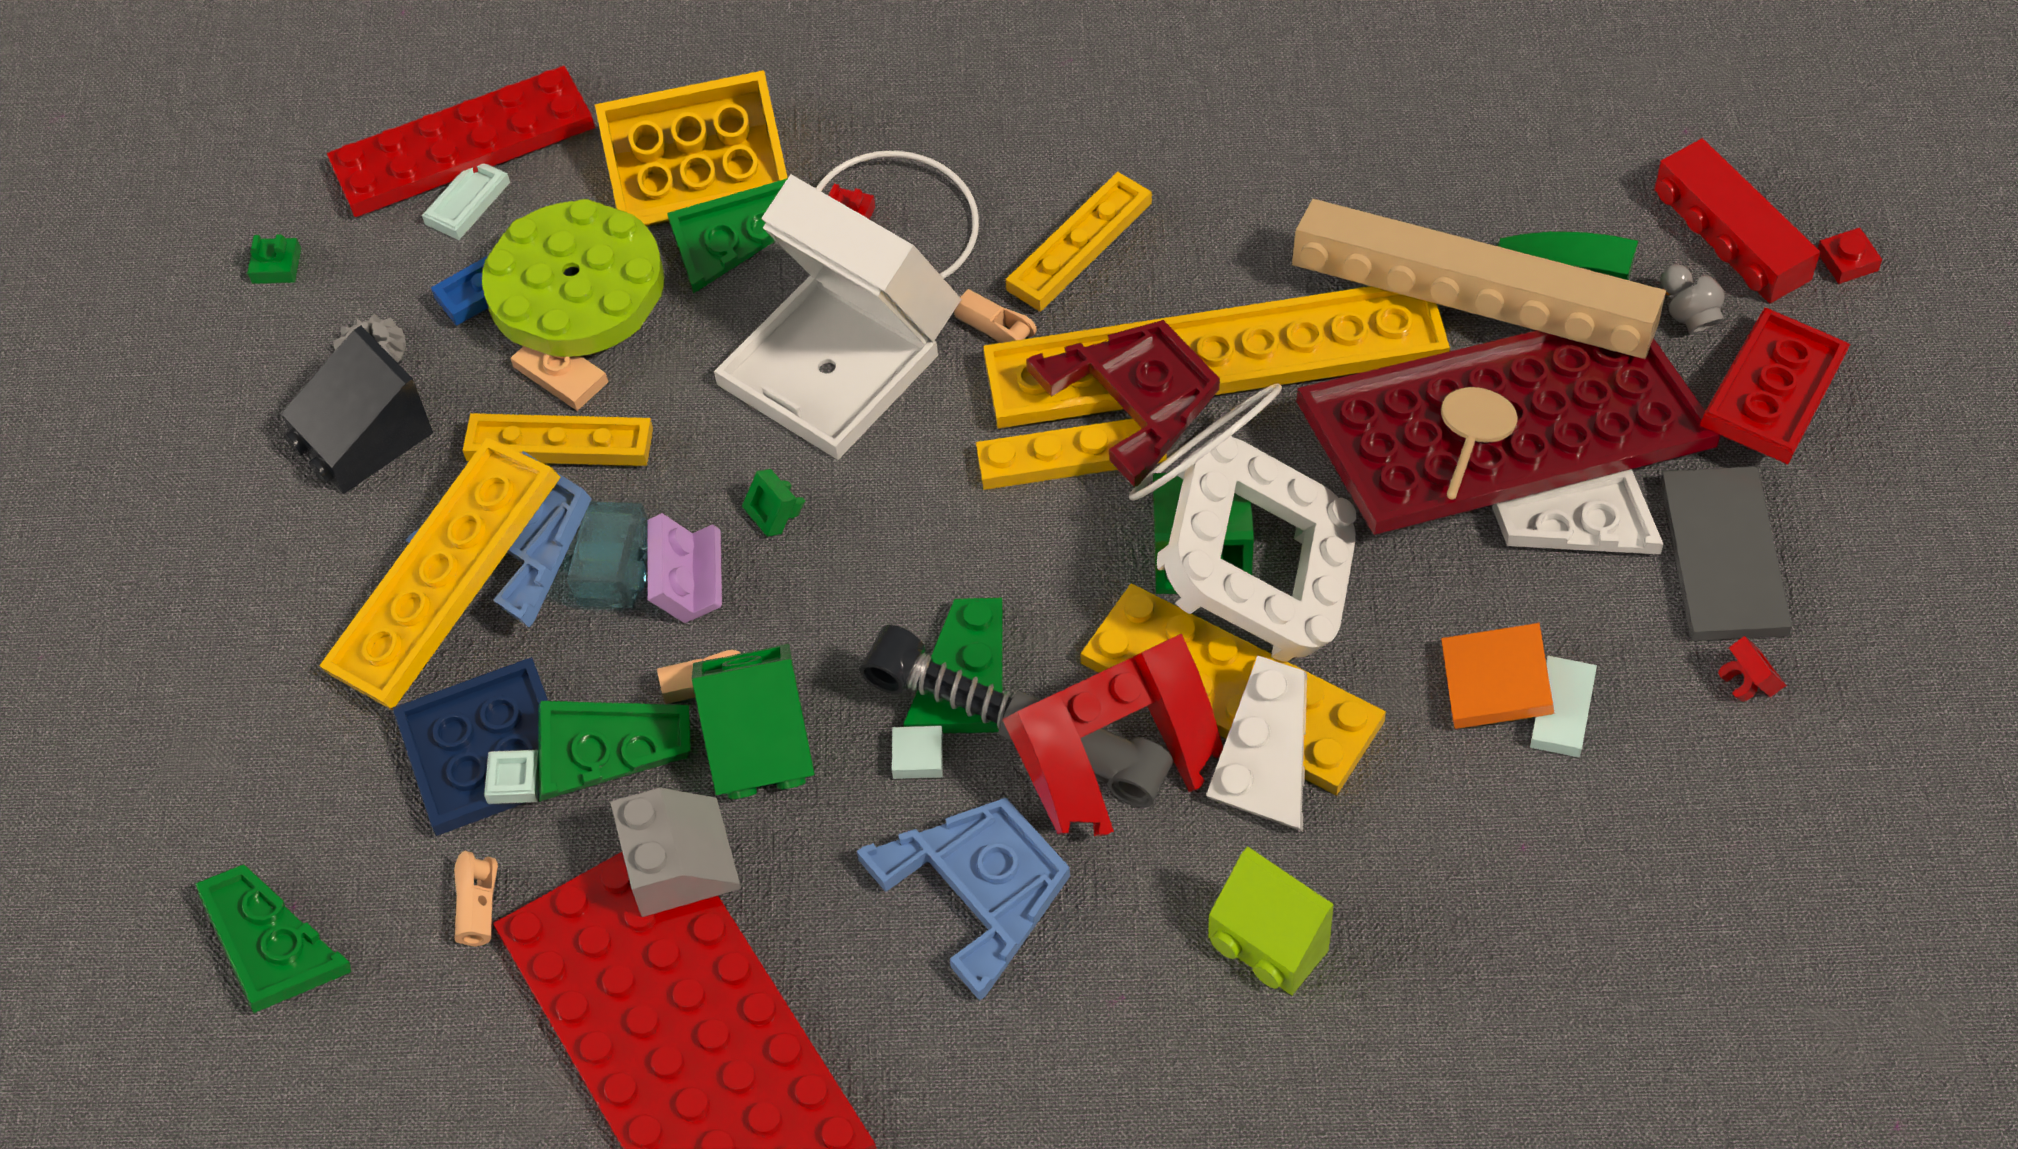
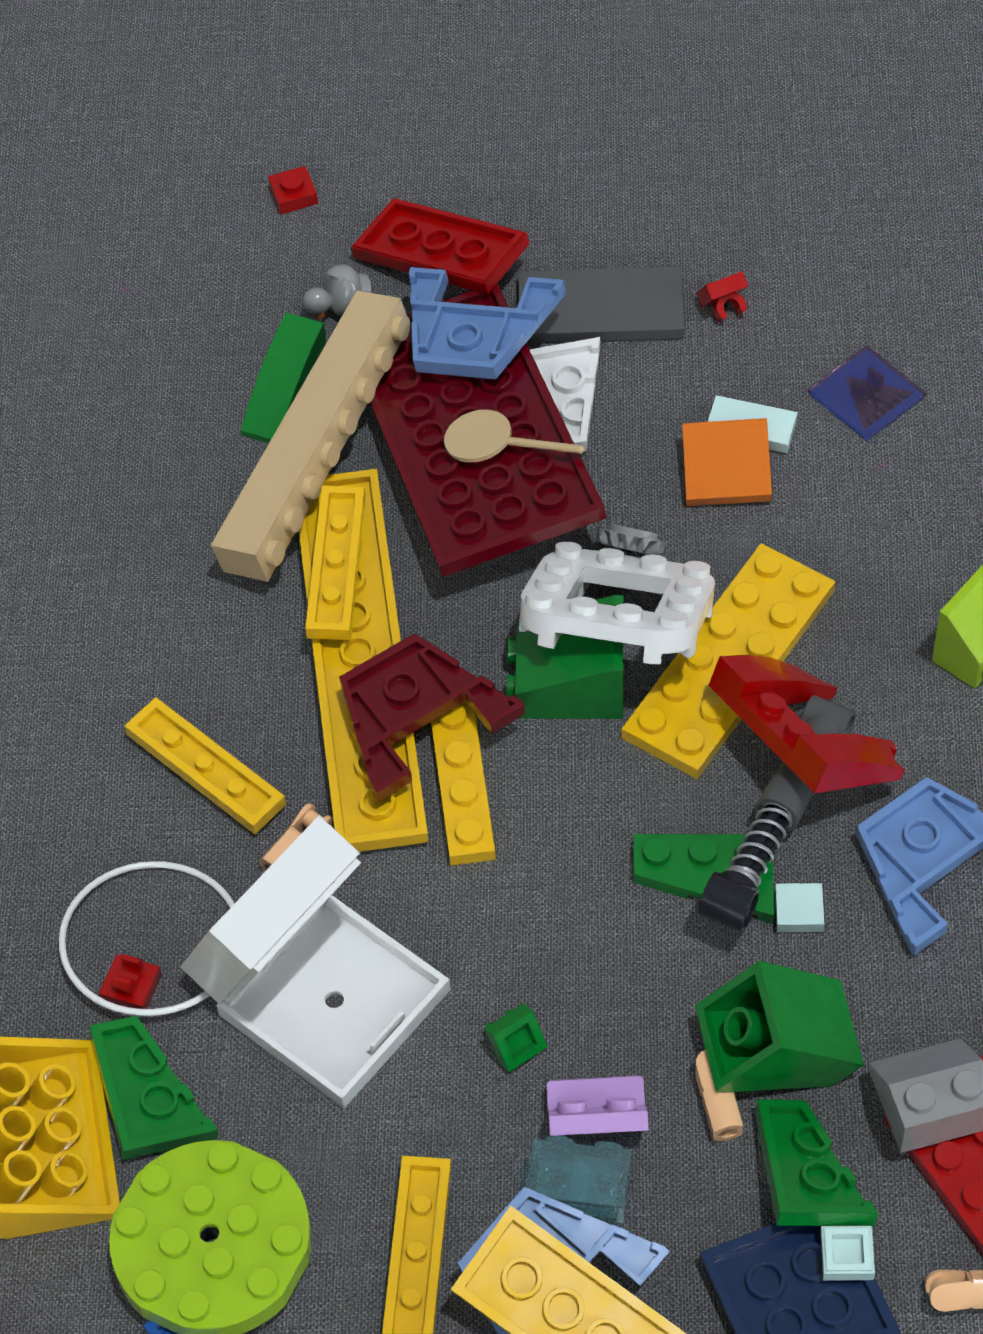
camera: 90 degrees left, 0 degrees up
(567, 378) = (332, 1254): light nougat plate -> none
(1265, 747) = (804, 623): white wing -> none
(1270, 393) = (564, 621): white piece -> none
(1313, 312) = (335, 563): none -> yellow plate
(1370, 577) = (630, 539): none -> light grey gear
(1619, 398) = (472, 337): none -> medium blue wing
(1632, 832) = (866, 393): none -> clear purple piece
(1736, 221) = (250, 256): red brick -> none

